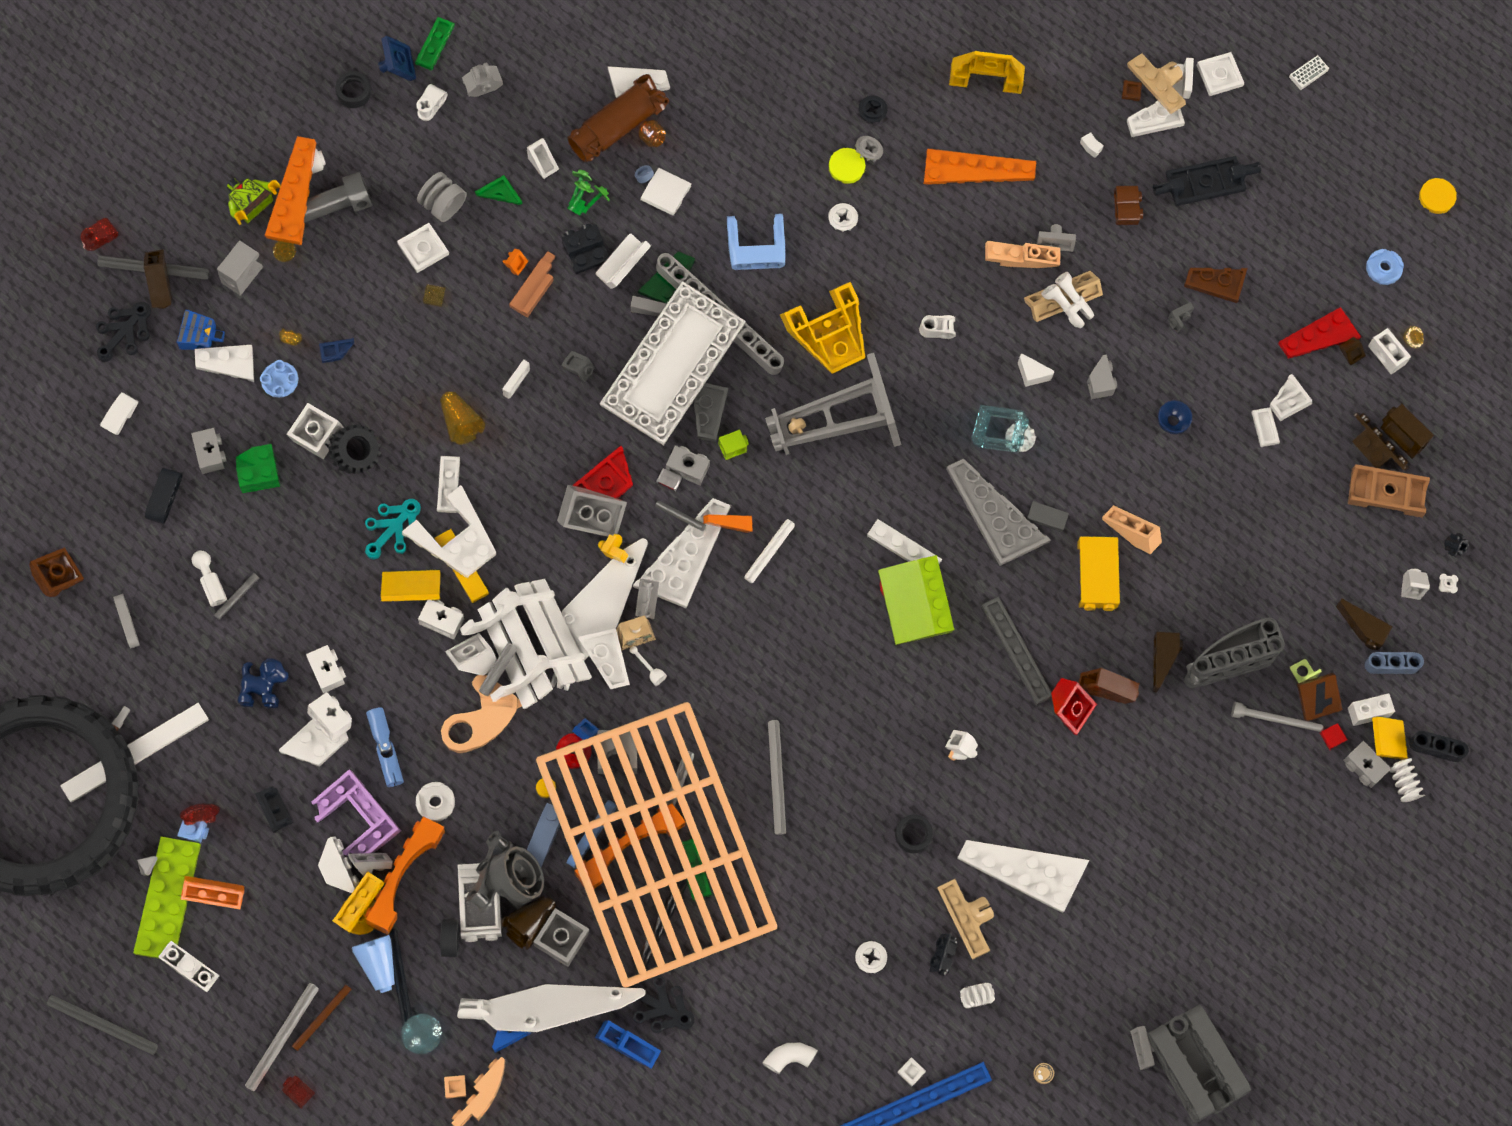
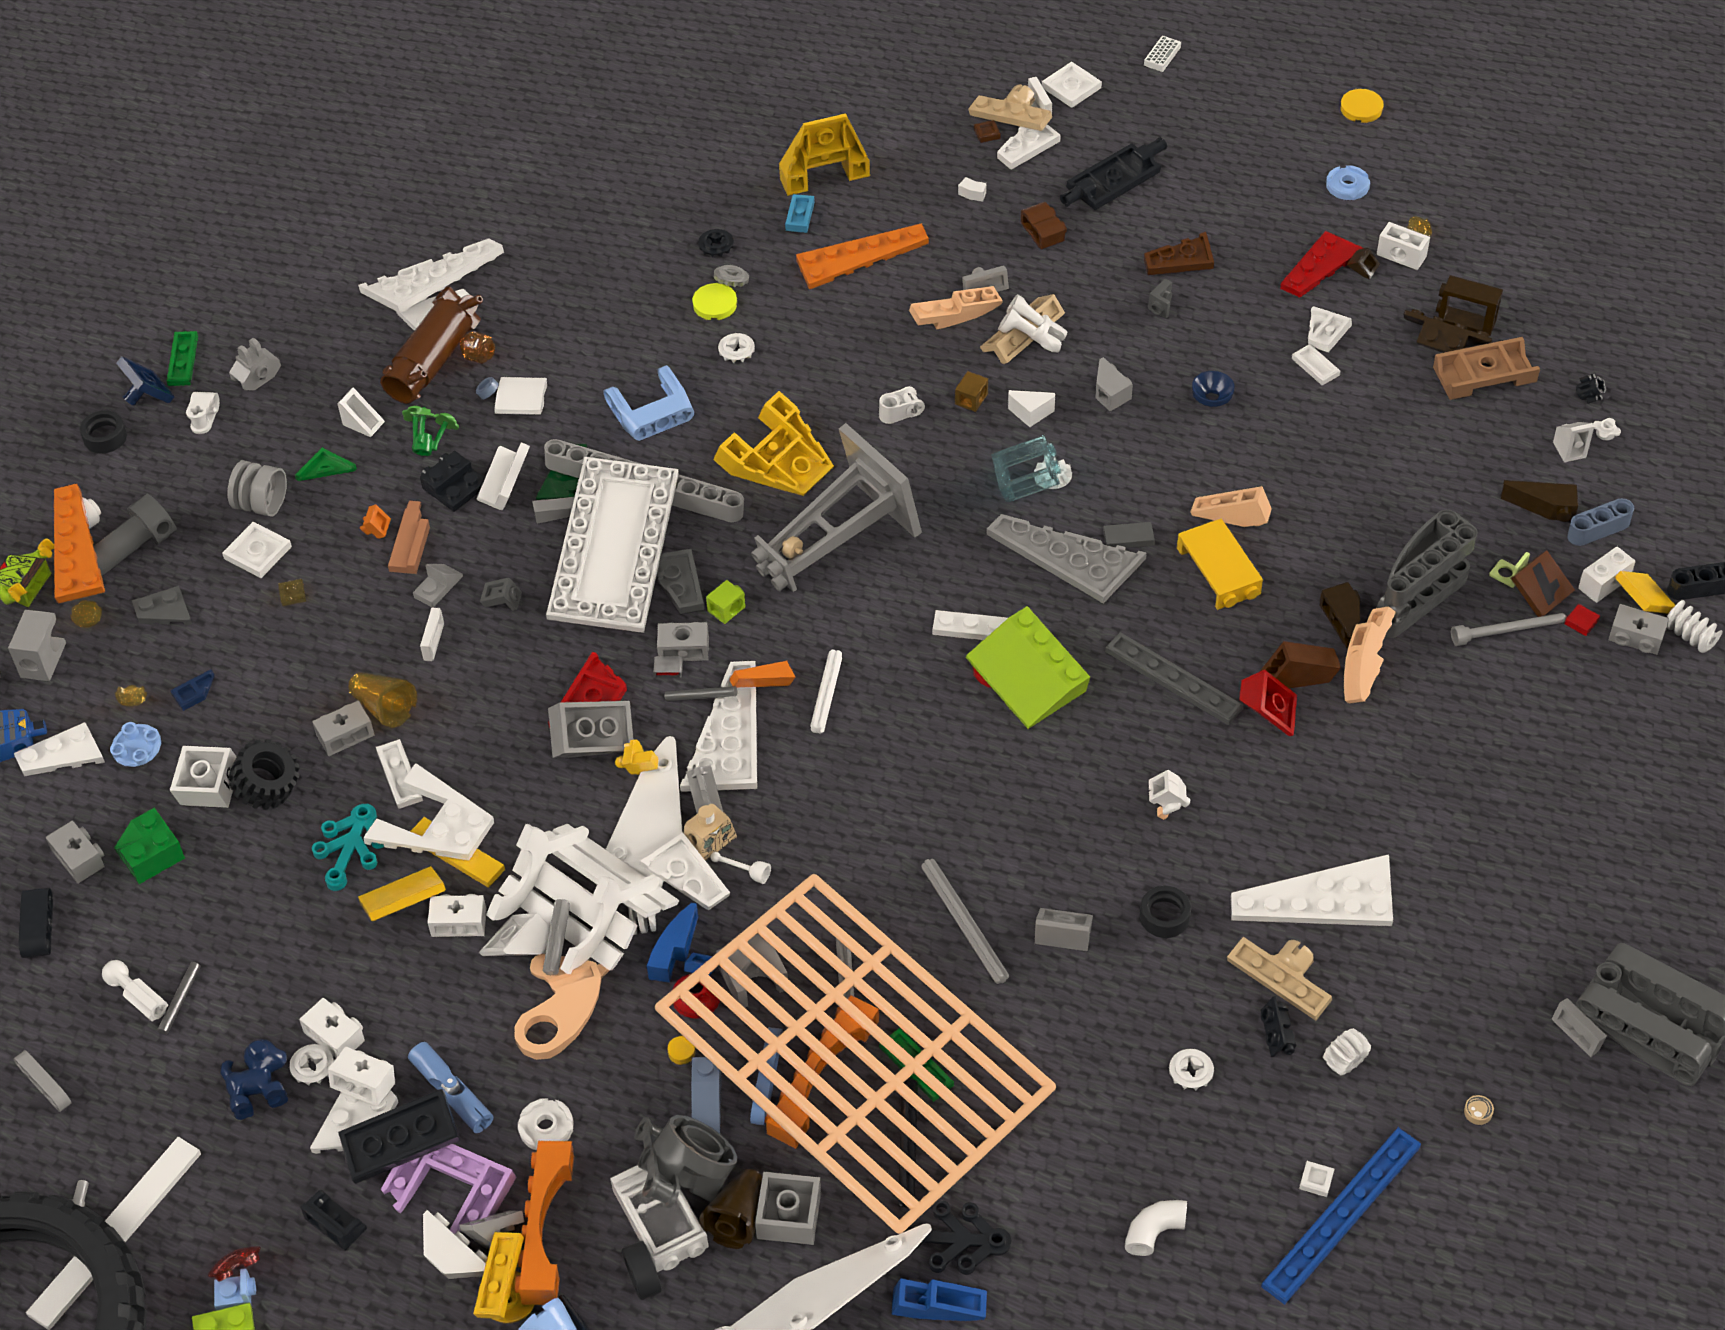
camera: 15 degrees left, 20 degrees down
(297, 681) = (300, 1068): none -> white gear
(336, 771) = (398, 1136): none -> black tile
(340, 268) = (162, 608): none -> dark grey wing
(434, 430) = (343, 728): none -> light grey brick
(539, 334) = (437, 584): none -> light grey slope
(574, 707) = (673, 944): none -> blue slope
(638, 49) = (426, 278): none -> white wing
(840, 813) = (1063, 929): none -> light grey slope
(948, 109) = (799, 213): none -> dark azure plate
(996, 338) = (971, 391): none -> pearl gold brick
(1152, 702) = (1362, 660): none -> light nougat slope

